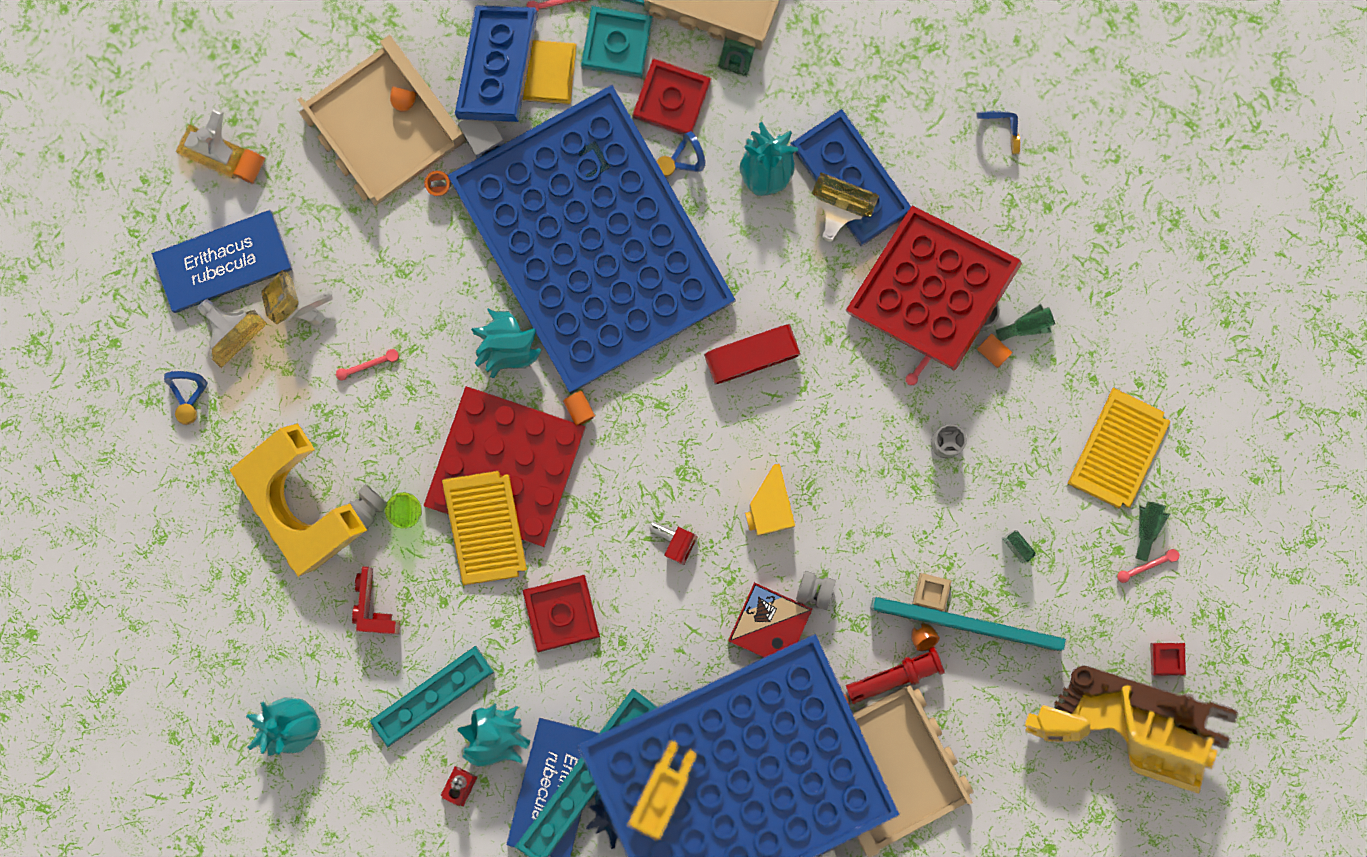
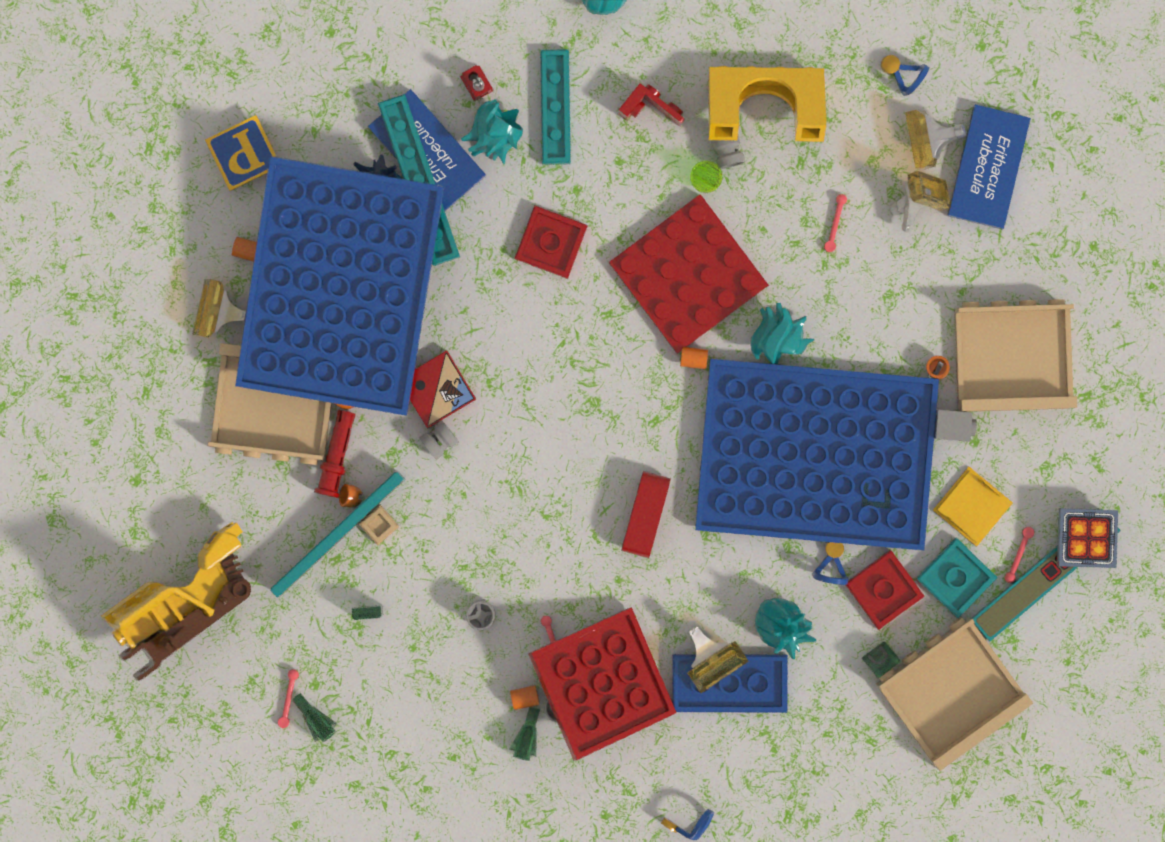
camera: 120 degrees right, 5 degrees up
(208, 148) = (1082, 214): piece -> none
(249, 166) = (1048, 235): orange hinge -> none
(402, 99) = (1022, 384): orange hinge -> none
(484, 527) = (652, 228): yellow window -> none
(496, 63) = (999, 473): blue tile -> none
(661, 794) = (367, 222): yellow hinge -> none
(680, 542) = (542, 365): red piece -> none
(770, 507) = (523, 449): yellow slope -> none
(1119, 449) = (387, 739): yellow window -> none
(1168, 659) = (211, 664): red tile -> none

